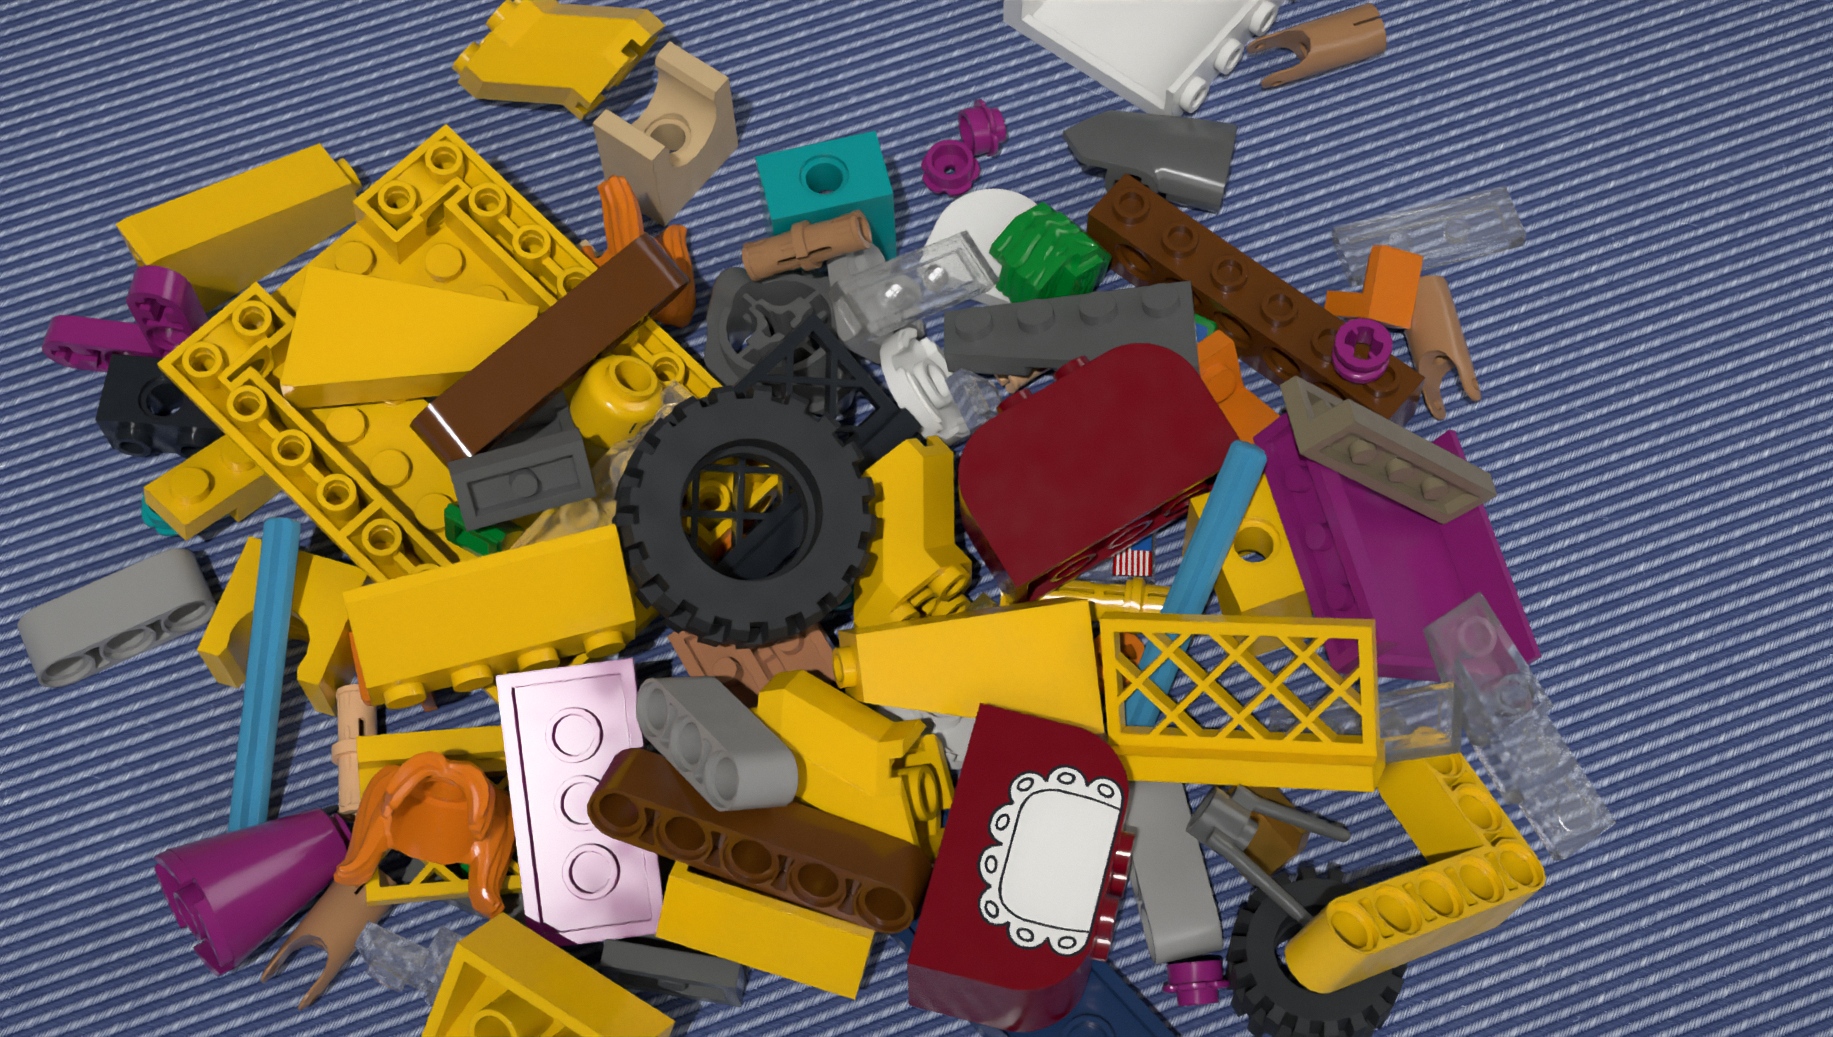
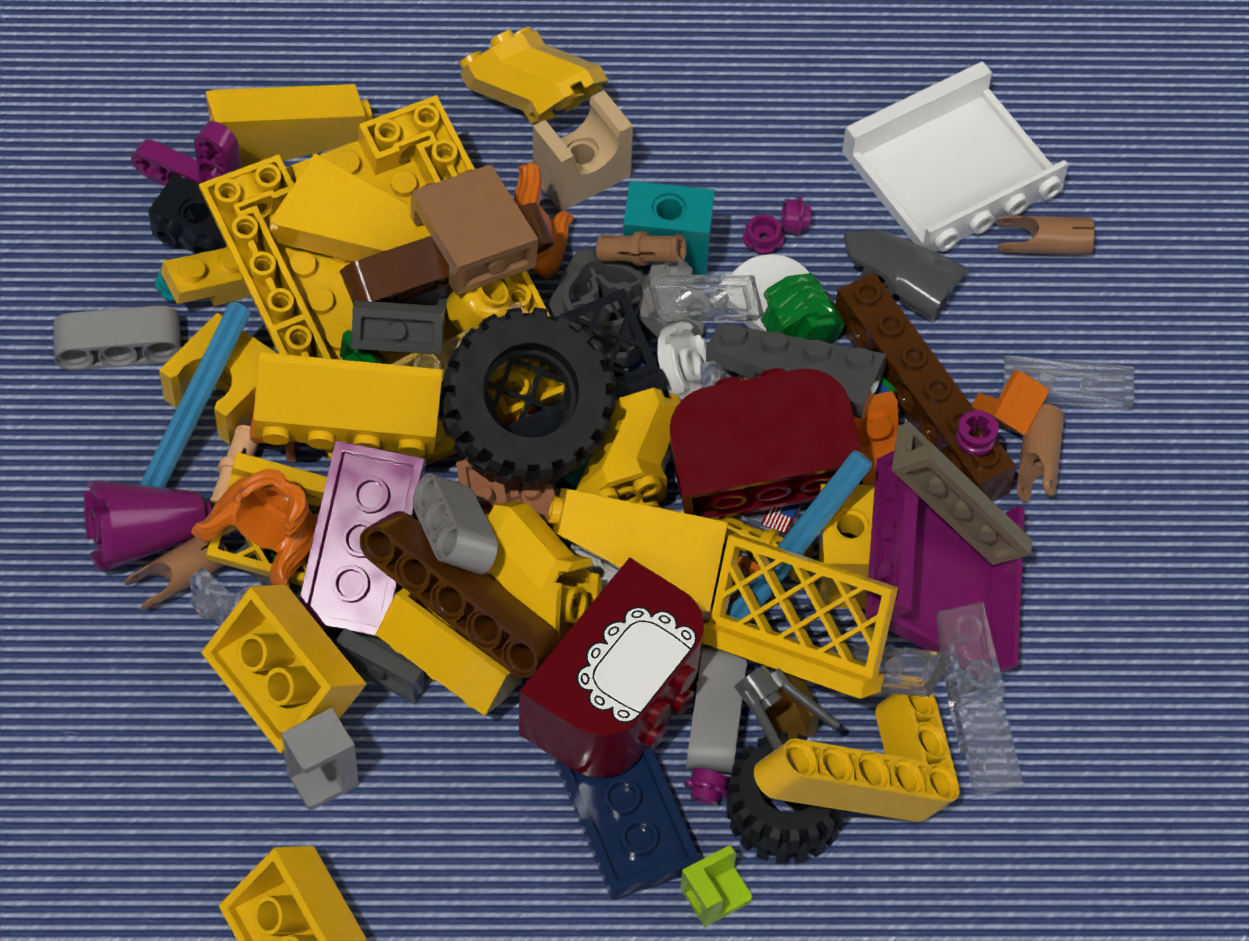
camera: 15 degrees right, 5 degrees down
(578, 297) = (476, 228): none -> medium nougat panel

